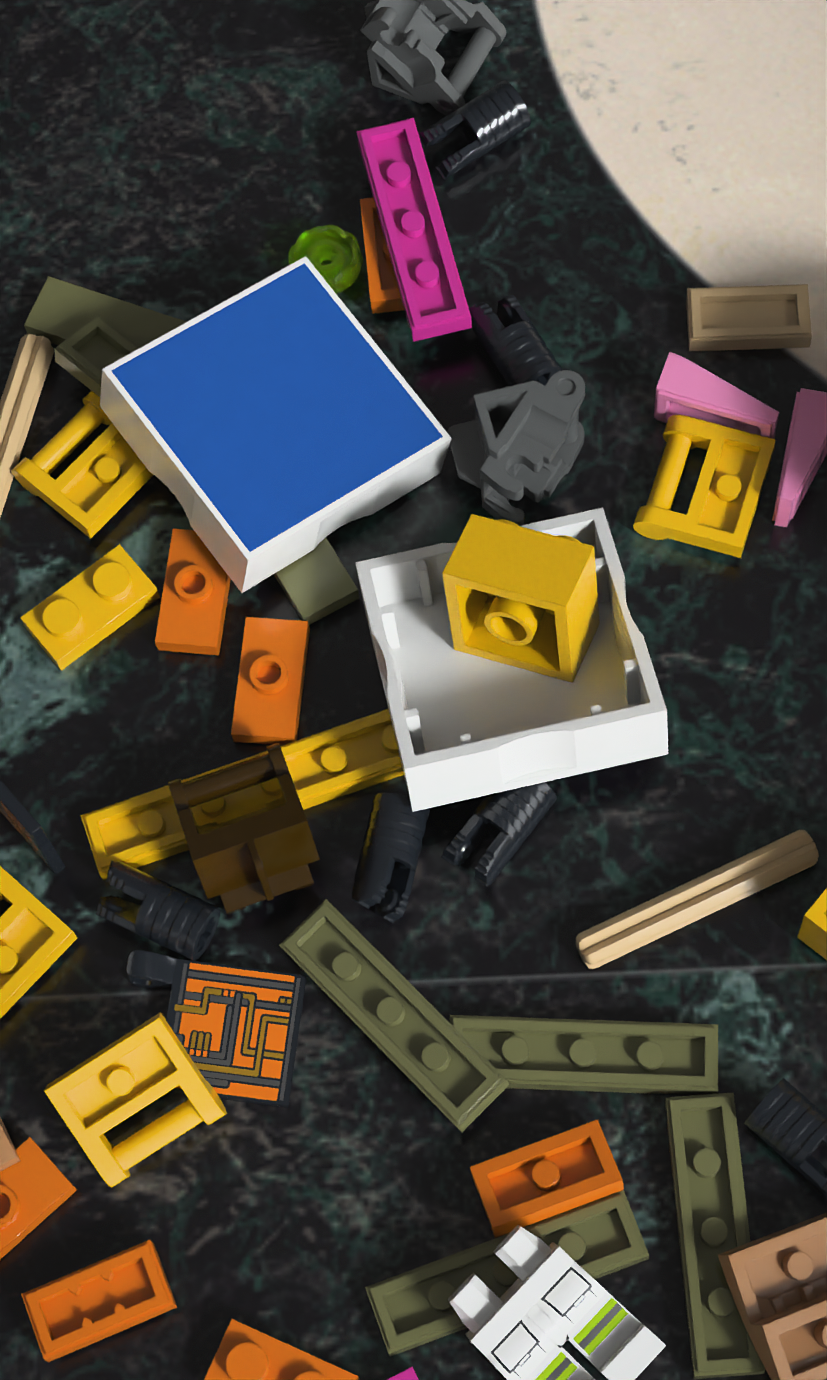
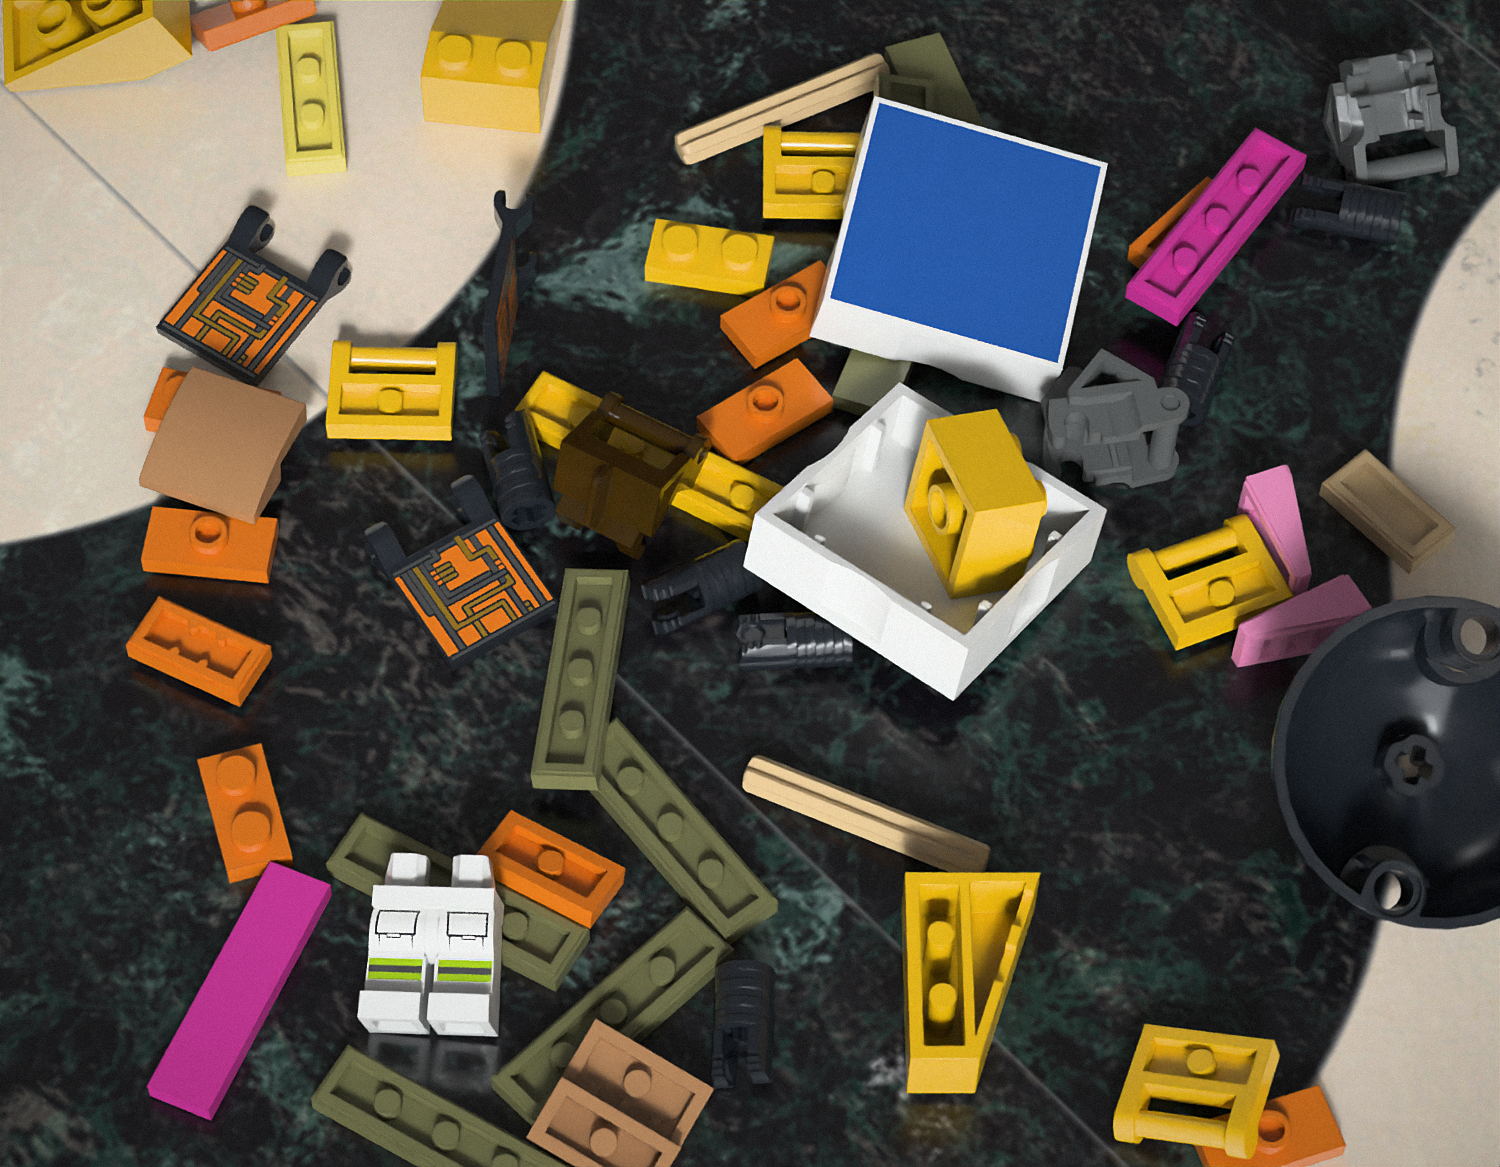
camera: 40 degrees right, 10 degrees down
(123, 1082) = (363, 535): yellow plate -> none
(330, 244) = (1139, 180): clear neon green plate -> none

